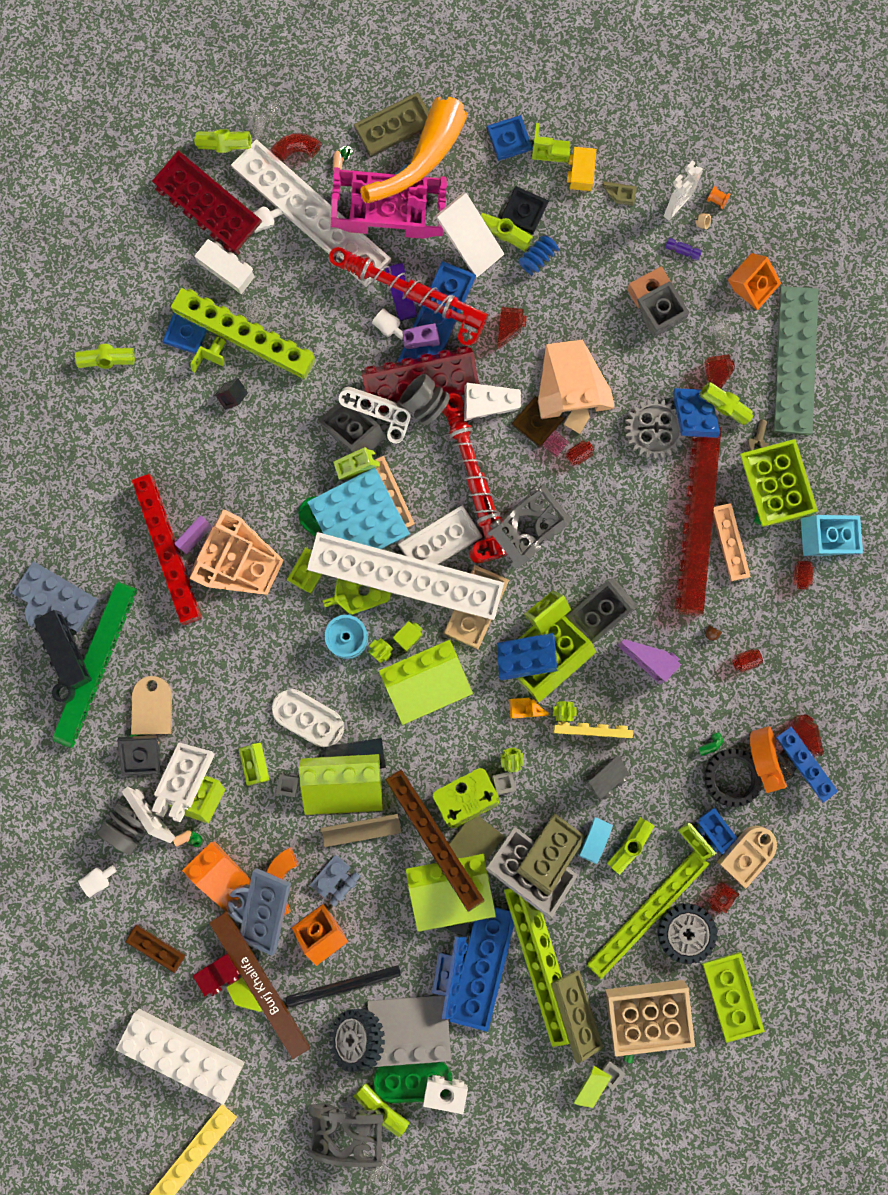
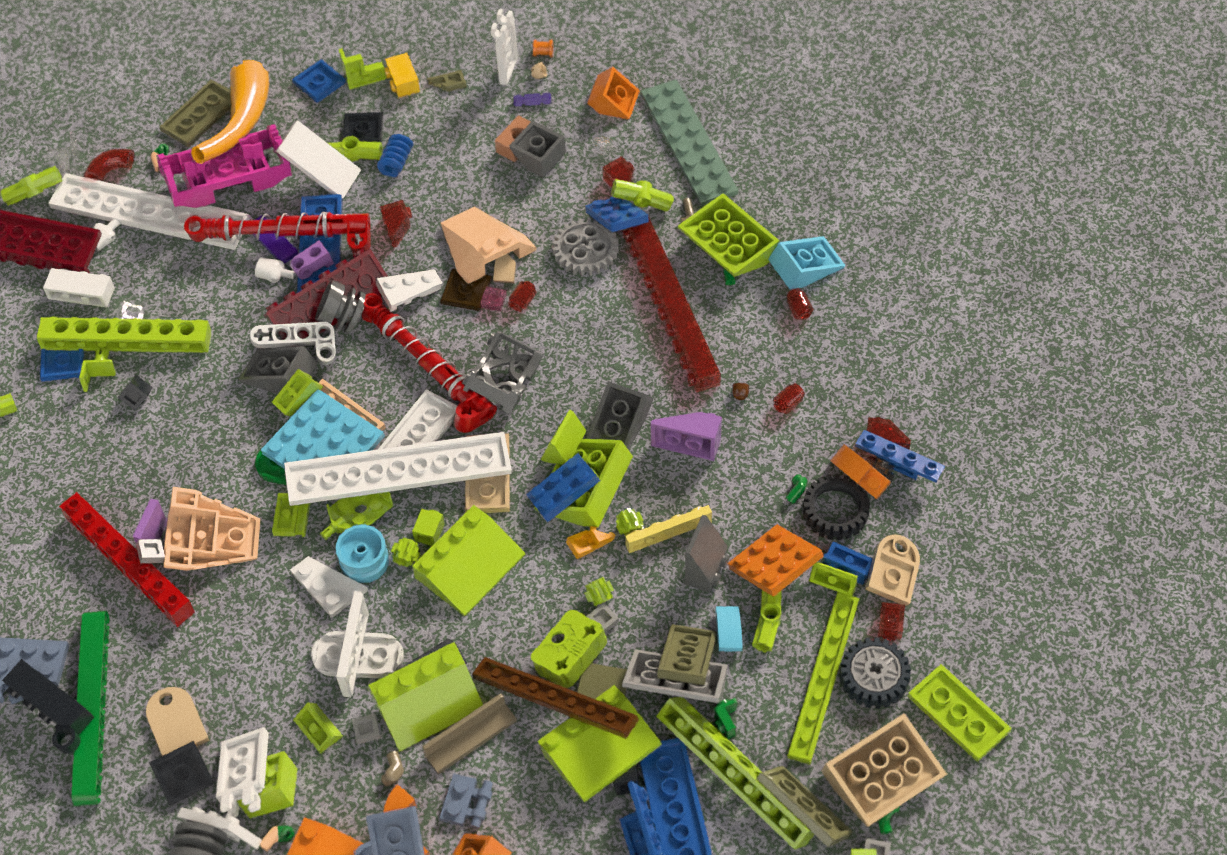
camera: 25 degrees left, 25 degrees down
(184, 560) = (150, 551): none -> plate
(294, 830) = (395, 770): none -> dark tan arm
(304, 718) = (352, 644): none -> white tile
(309, 647) = (326, 585): none -> white wing
(554, 921) = (723, 721): none -> green bracket
(660, 803) = (775, 560): none -> orange plate
(731, 542) = (714, 308): light nougat plate -> none

